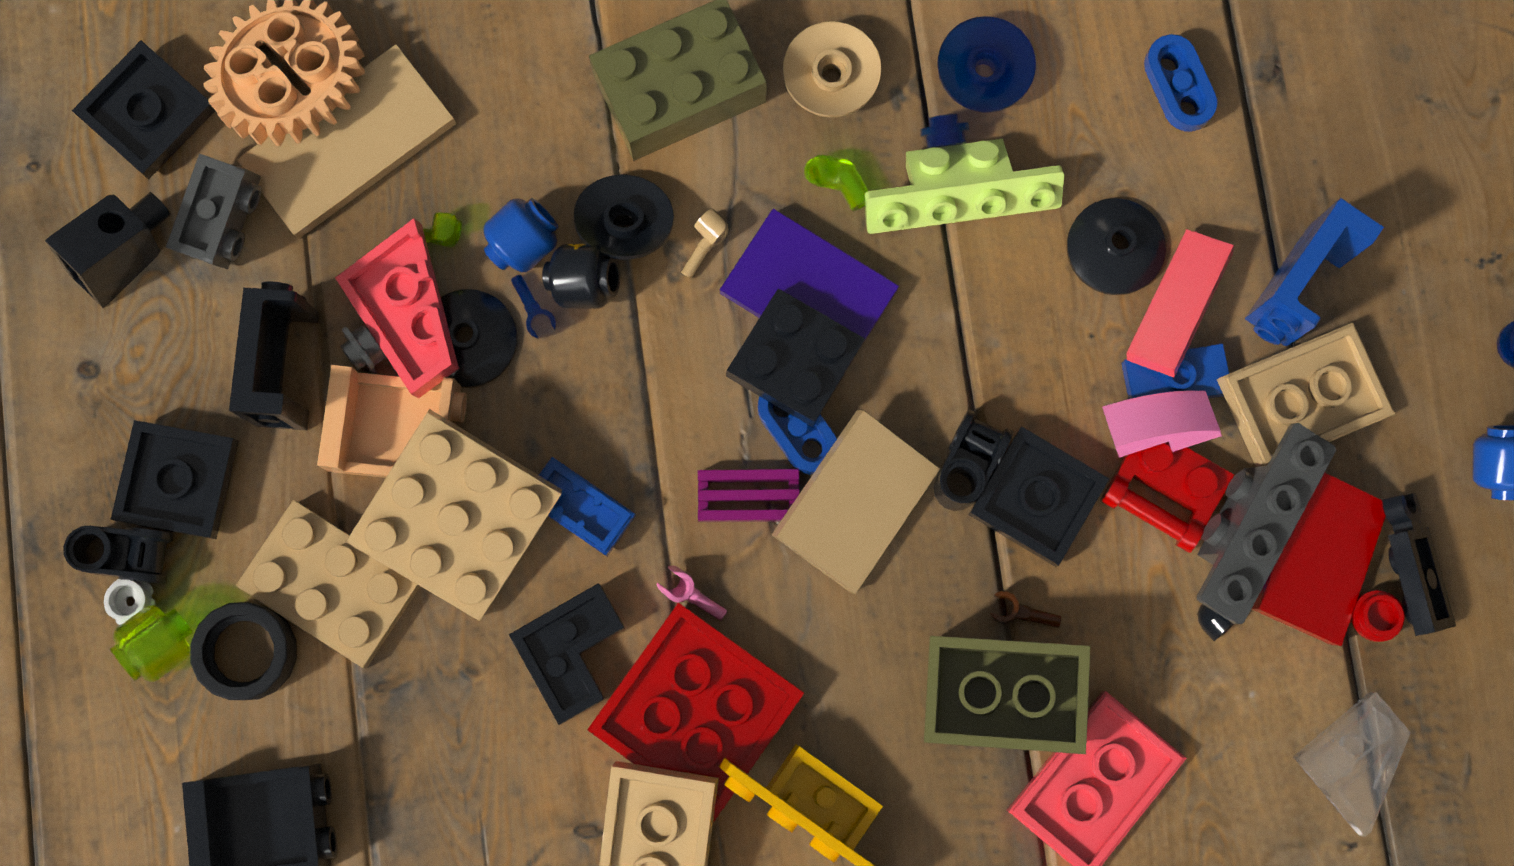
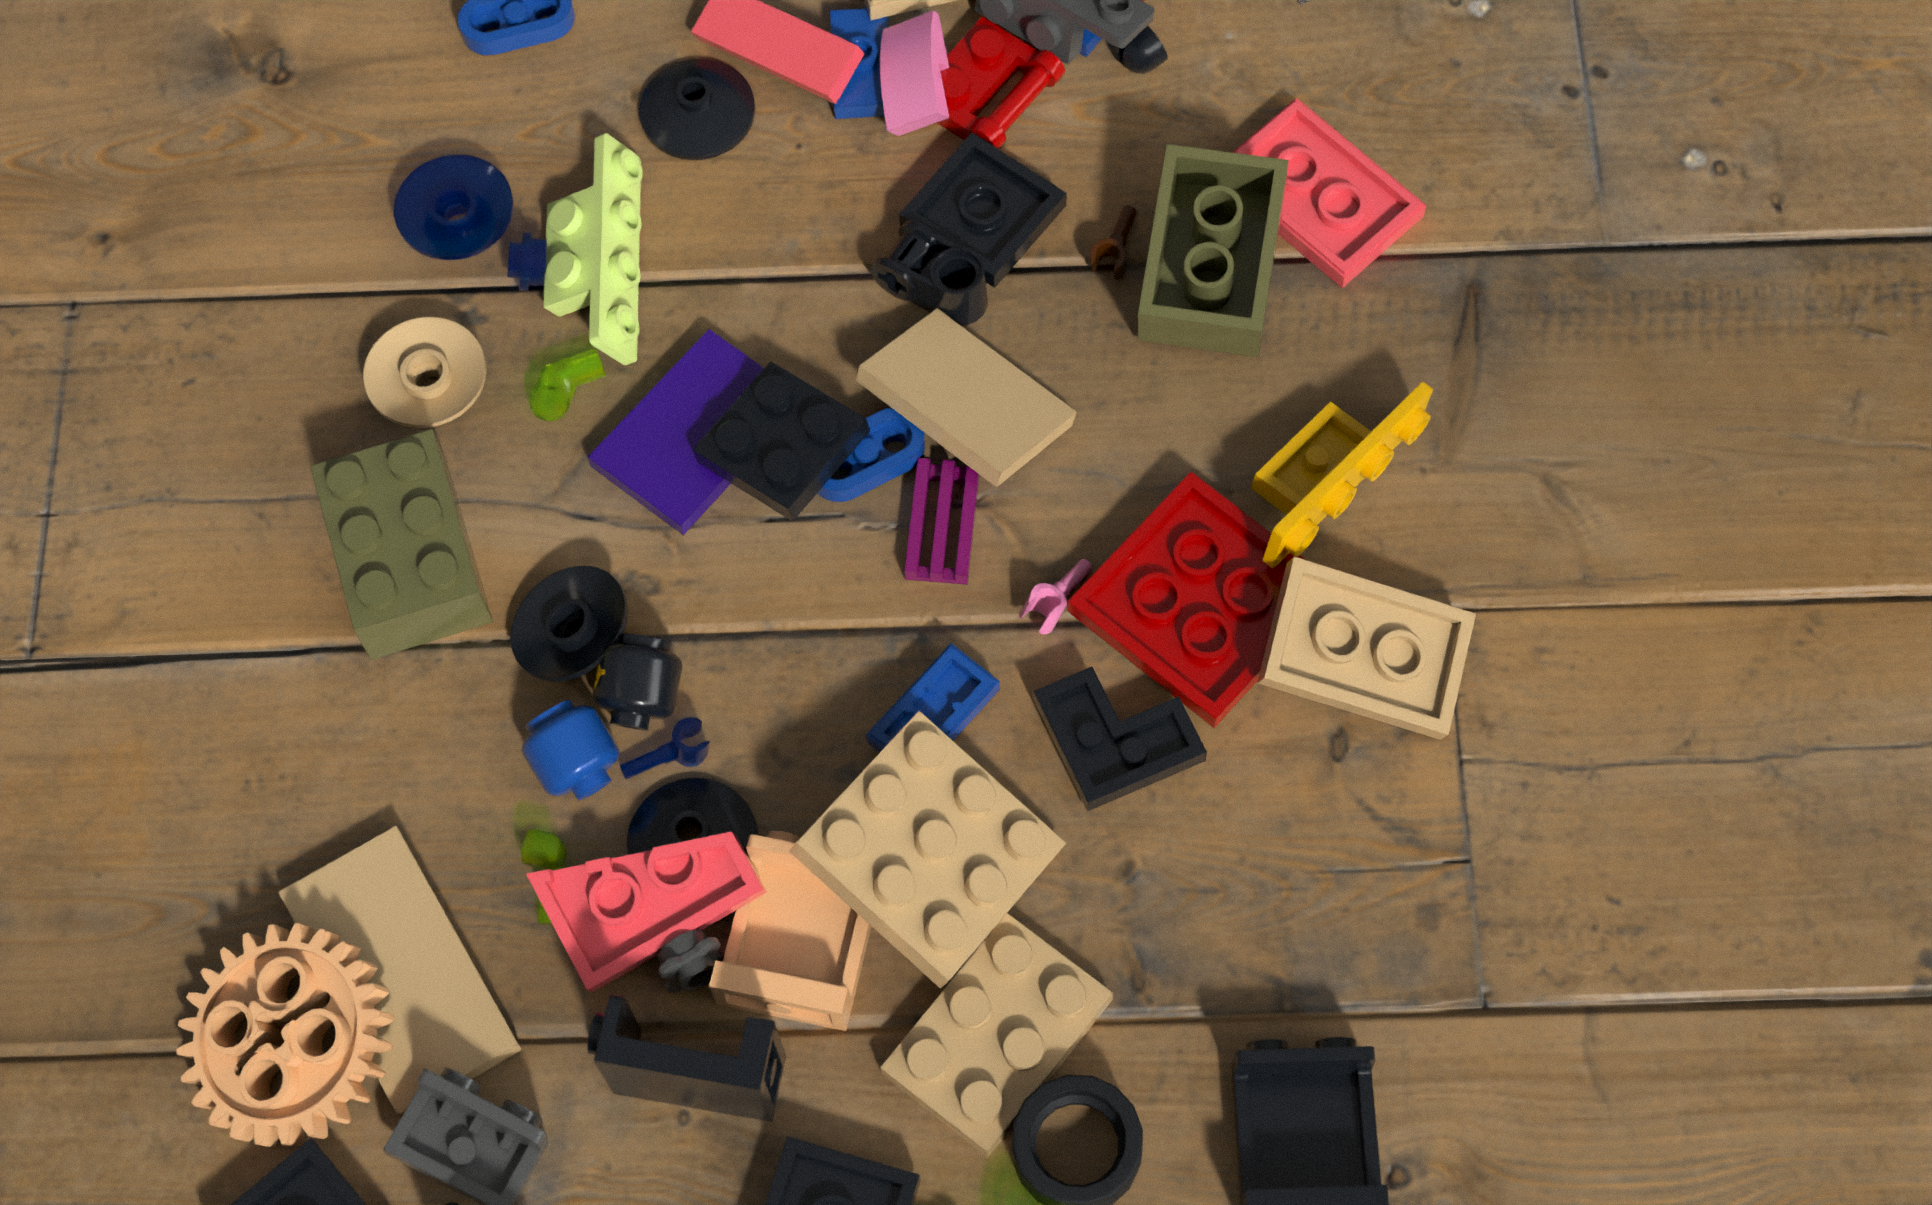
camera: 80 degrees left, 15 degrees down
(714, 231) = (602, 528): tan hand -> none

